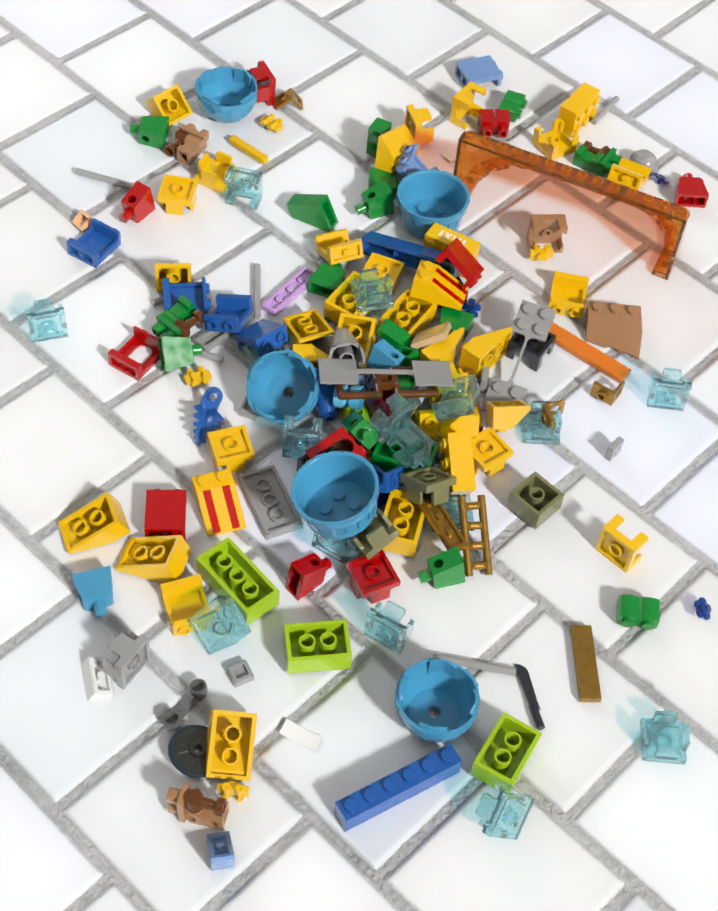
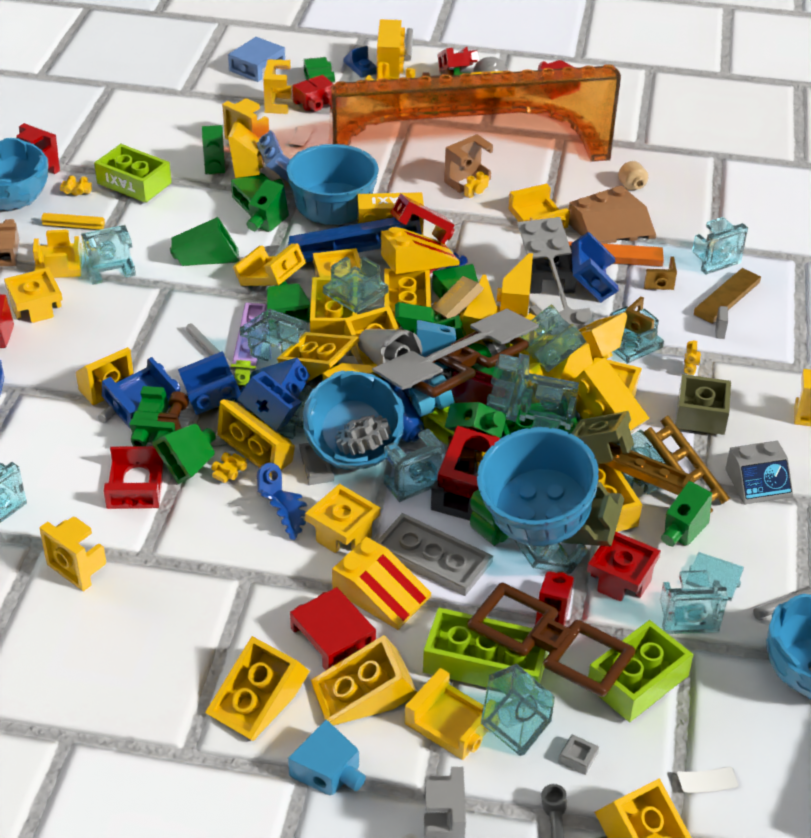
camera: 30 degrees left, 10 degrees down
(55, 372) = (66, 554): none -> yellow panel
(224, 364) = (253, 436): none -> yellow slope
(243, 345) = (269, 400): none -> blue brick
(253, 315) = (242, 371): none -> lime hinge
(274, 595) = (552, 638): none -> reddish brown bar
(284, 400) = (363, 435): none -> light grey gear
(286, 97) = (72, 156): pearl gold bracket -> none
(290, 296) = (272, 330): none -> clear light blue panel
(312, 131) = (133, 172): none -> lime brick
(431, 618) = (721, 570): none -> clear light blue piece
(528, 568) = (760, 472): none -> slope
(552, 109) = (358, 61): none -> blue slope
(557, 359) = (590, 266): none -> blue panel
(562, 463) = (691, 358): none -> yellow piece
(621, 143) = (449, 60): none -> red hips
(645, 430) = (727, 294): none -> pearl gold tile
(666, 301) = (633, 175): none -> tan head

